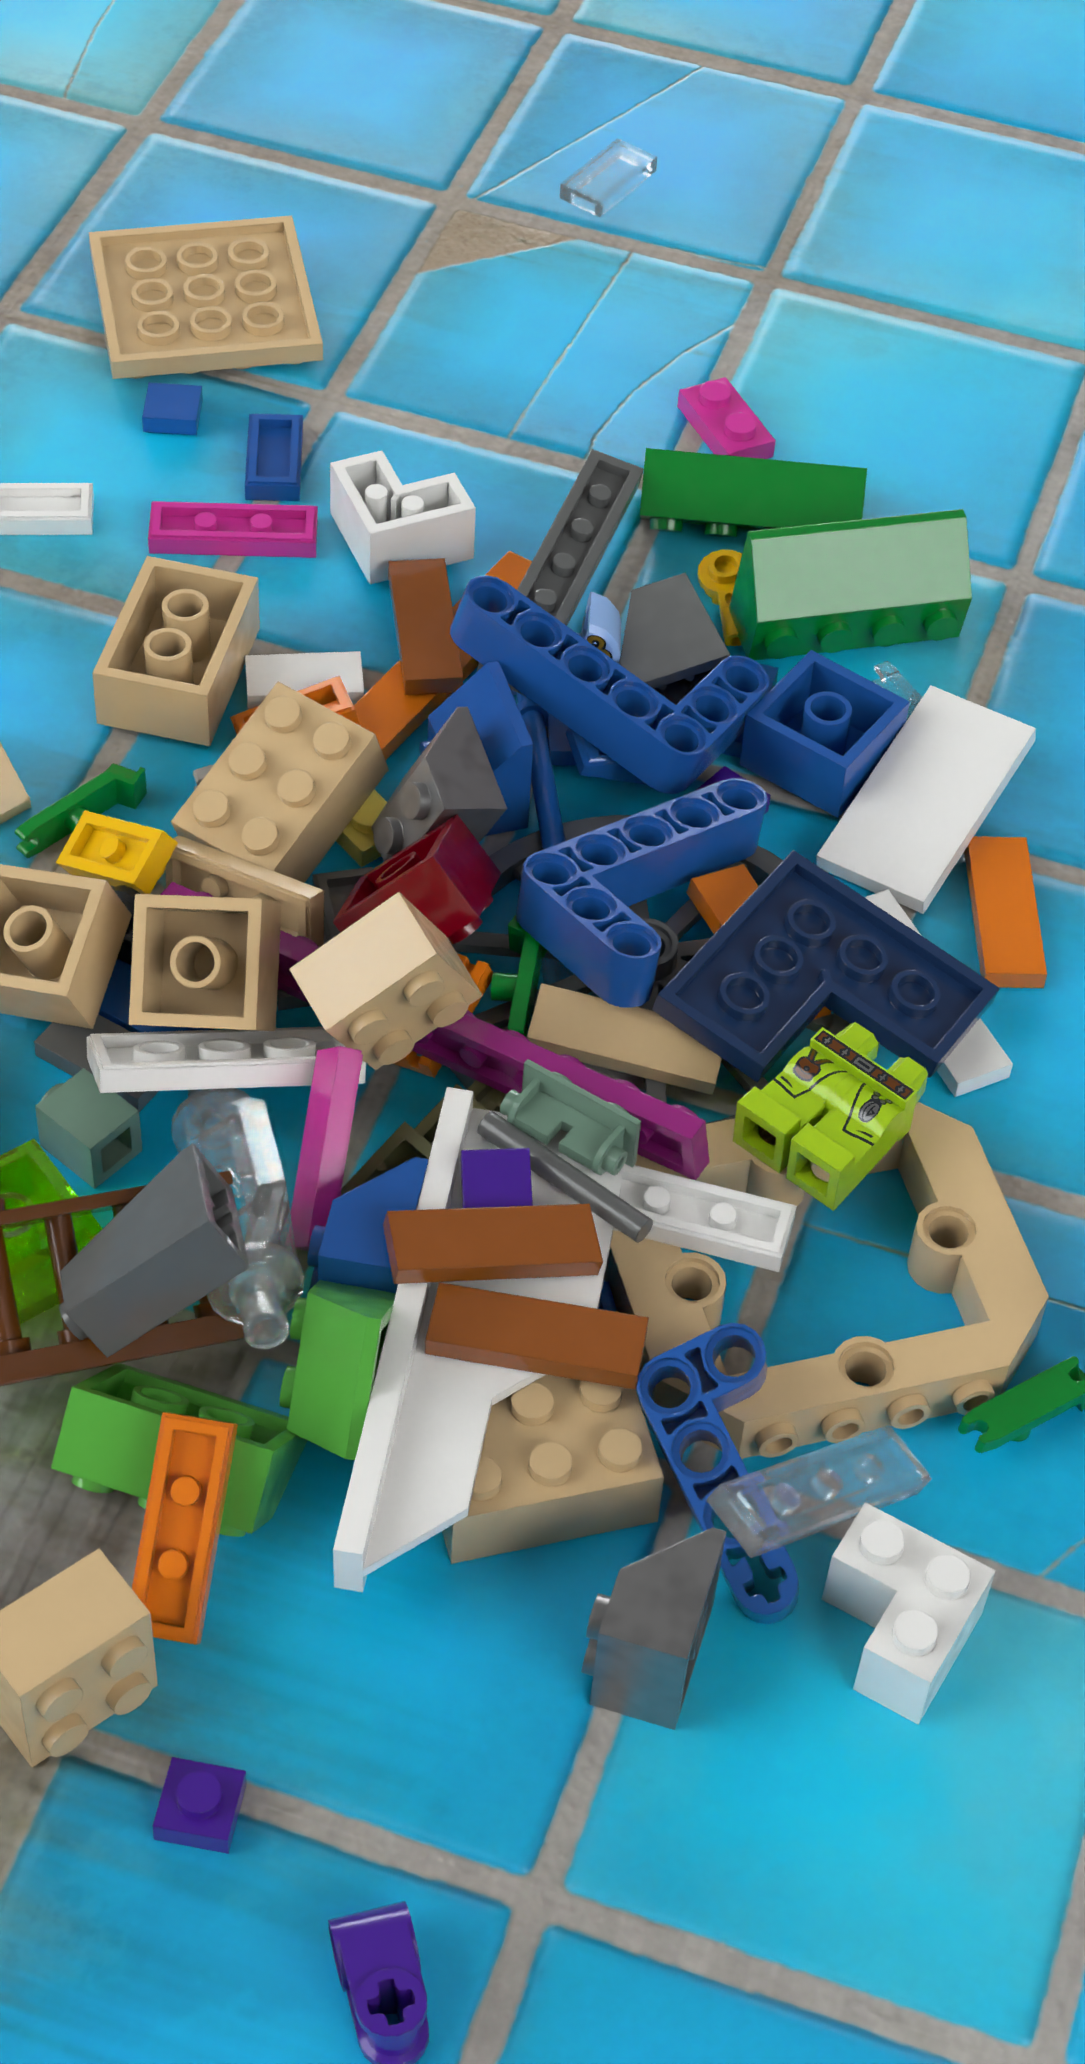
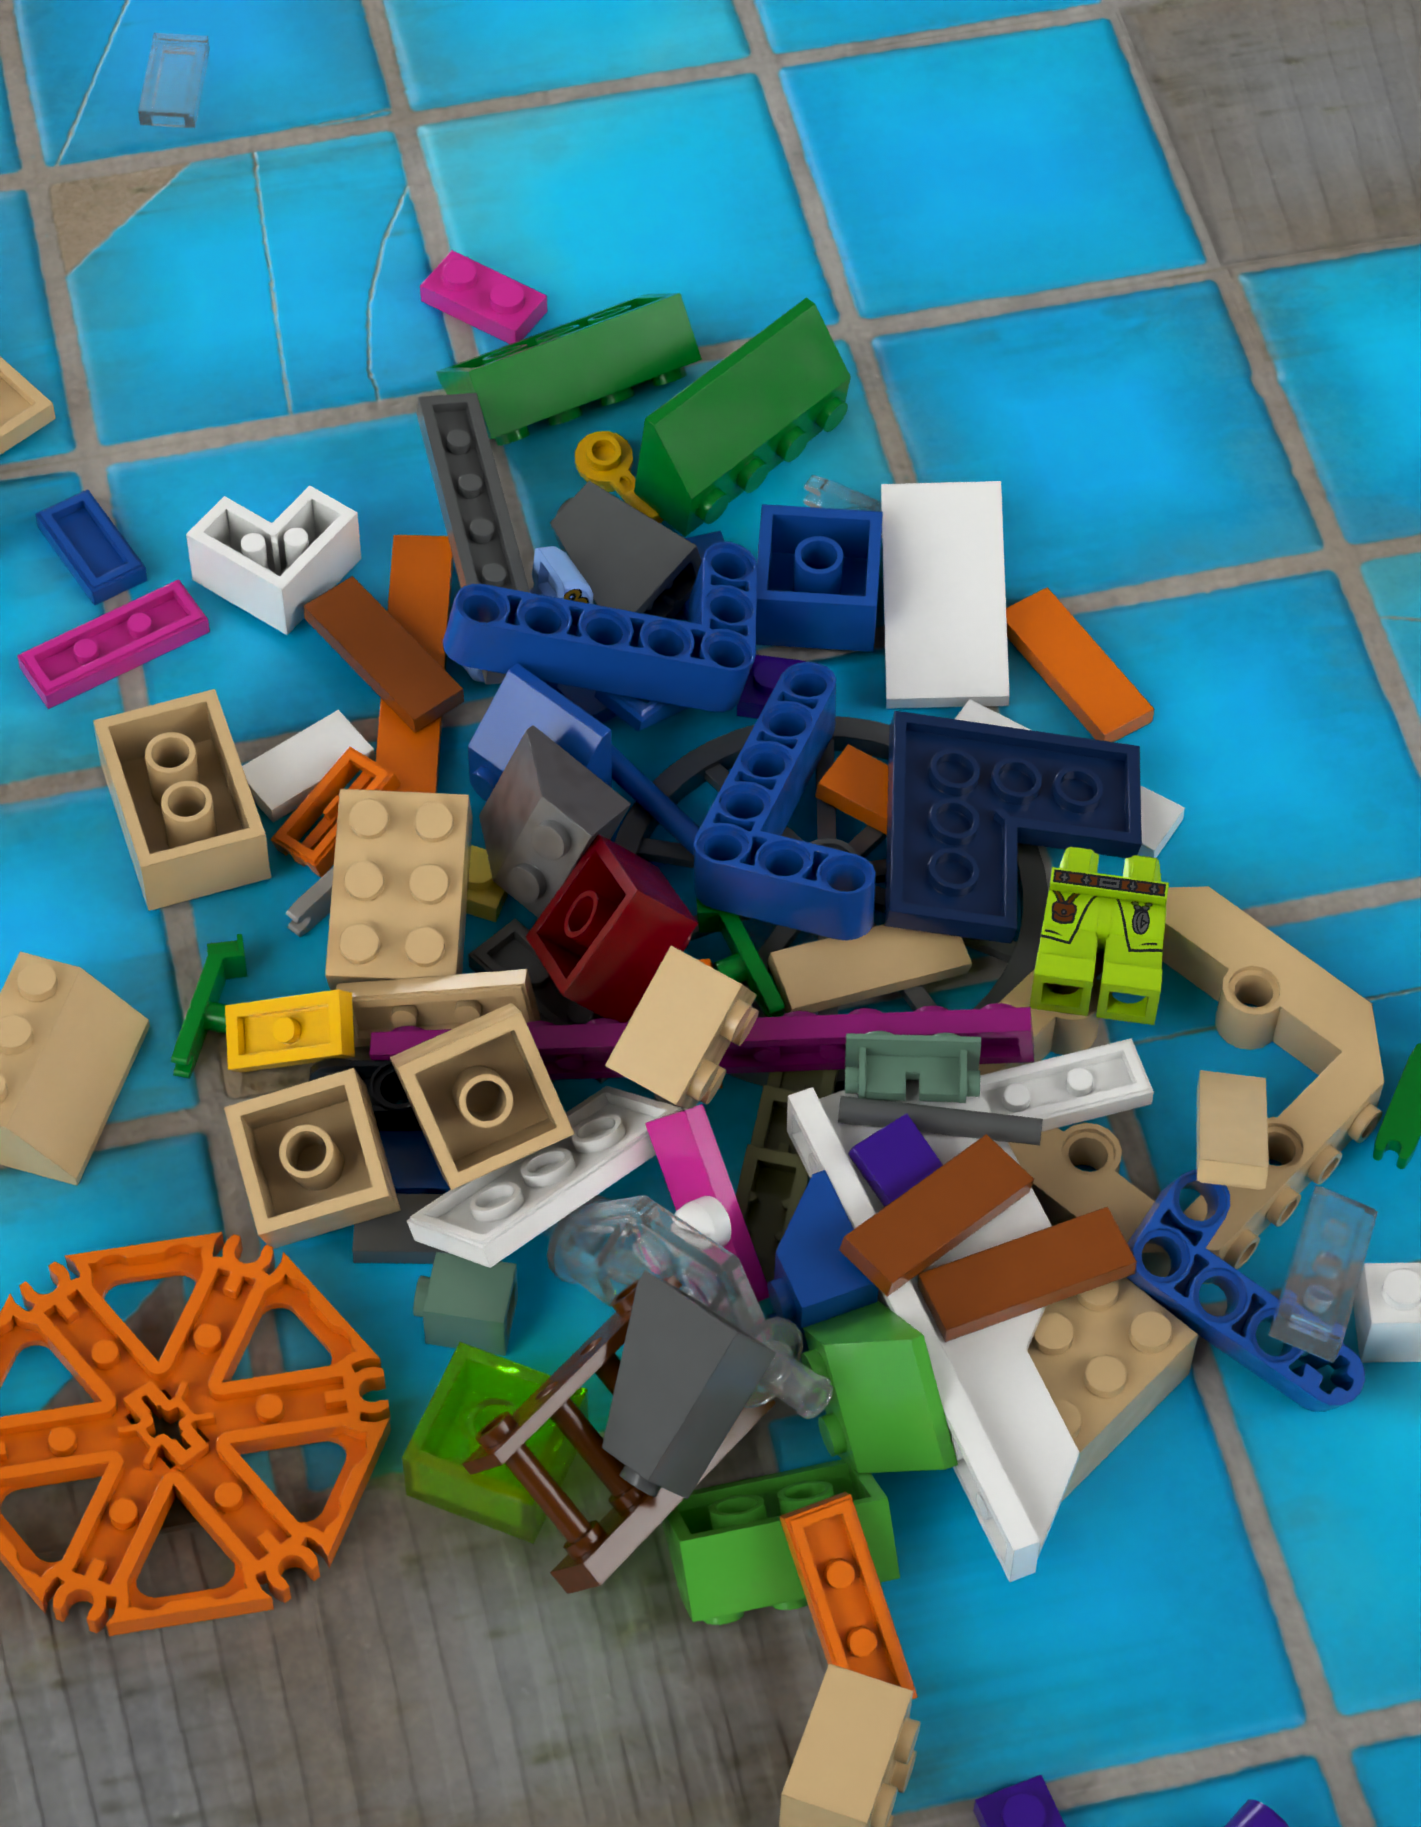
camera: 30 degrees left, 5 degrees up
(301, 1154) = (708, 1217): none -> white hinge
(653, 1630) = (1286, 1468): flat silver slope -> none
(812, 1316) = (1232, 1130): none -> tan tile

